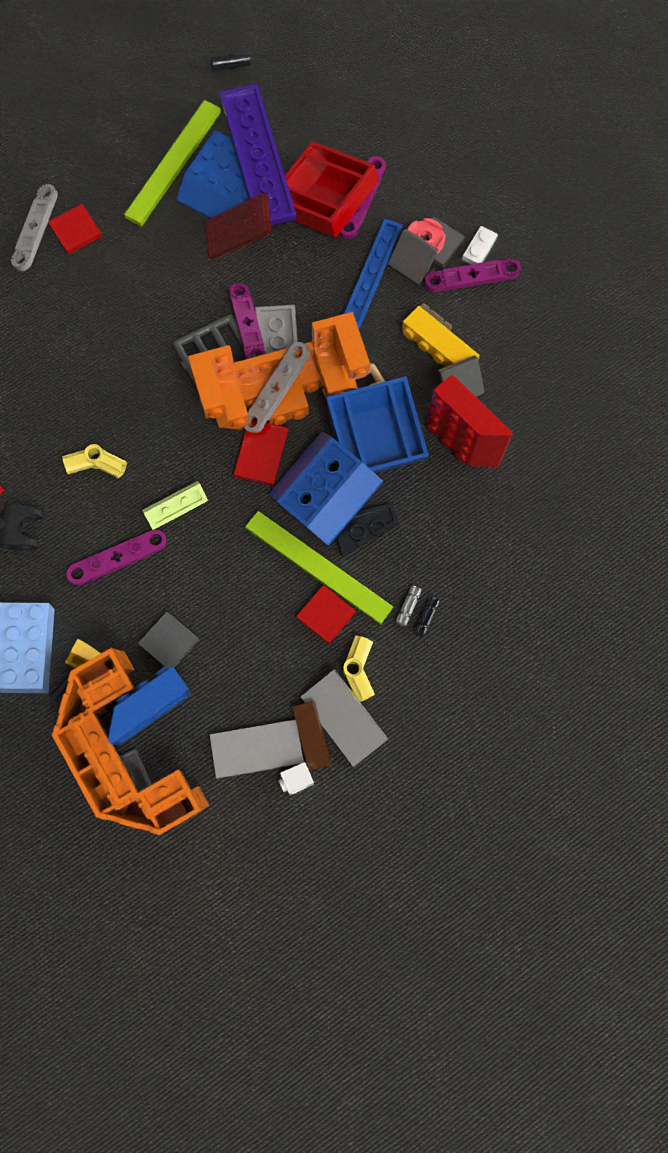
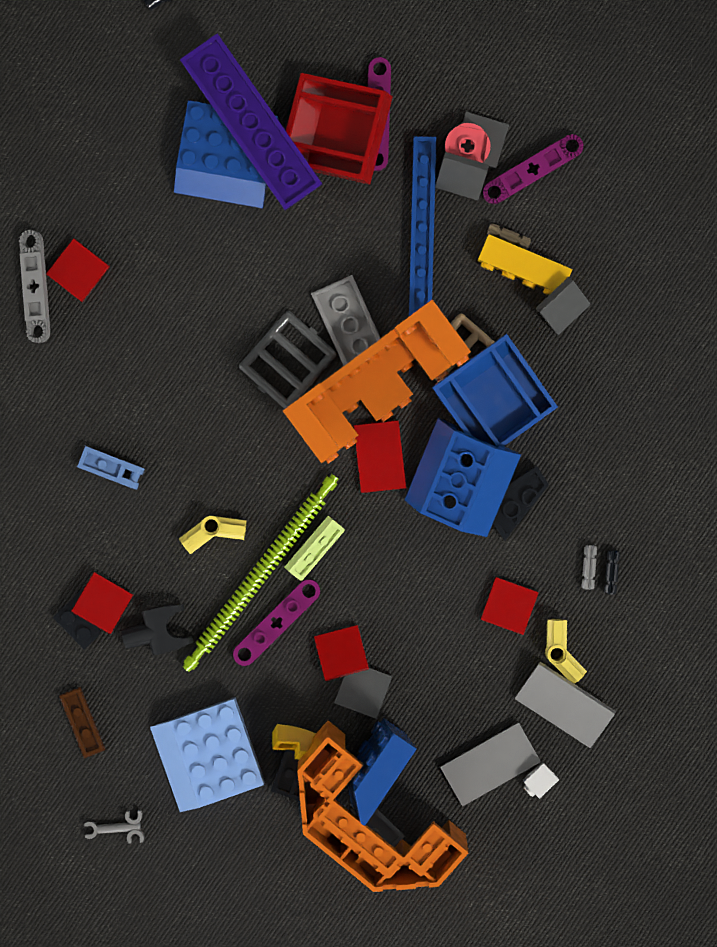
camera: 10 degrees left, 15 degrees up
(31, 382) = (110, 467): none -> medium blue plate
(161, 601) = (341, 653): none -> red tile
(172, 163) = (152, 147): lime tile -> none
(209, 458) = (191, 661): none -> lime hose
(238, 226) = (262, 215): clear red tile -> none
(245, 312) = (320, 332): magenta piece -> none
(283, 377) = (378, 376): light grey piece -> none
(311, 736) = (539, 733): reddish brown tile -> none
(319, 567) = (484, 559): lime tile -> none
(467, 425) = (585, 365): red slope -> none
(479, 246) = (529, 129): white plate -> none

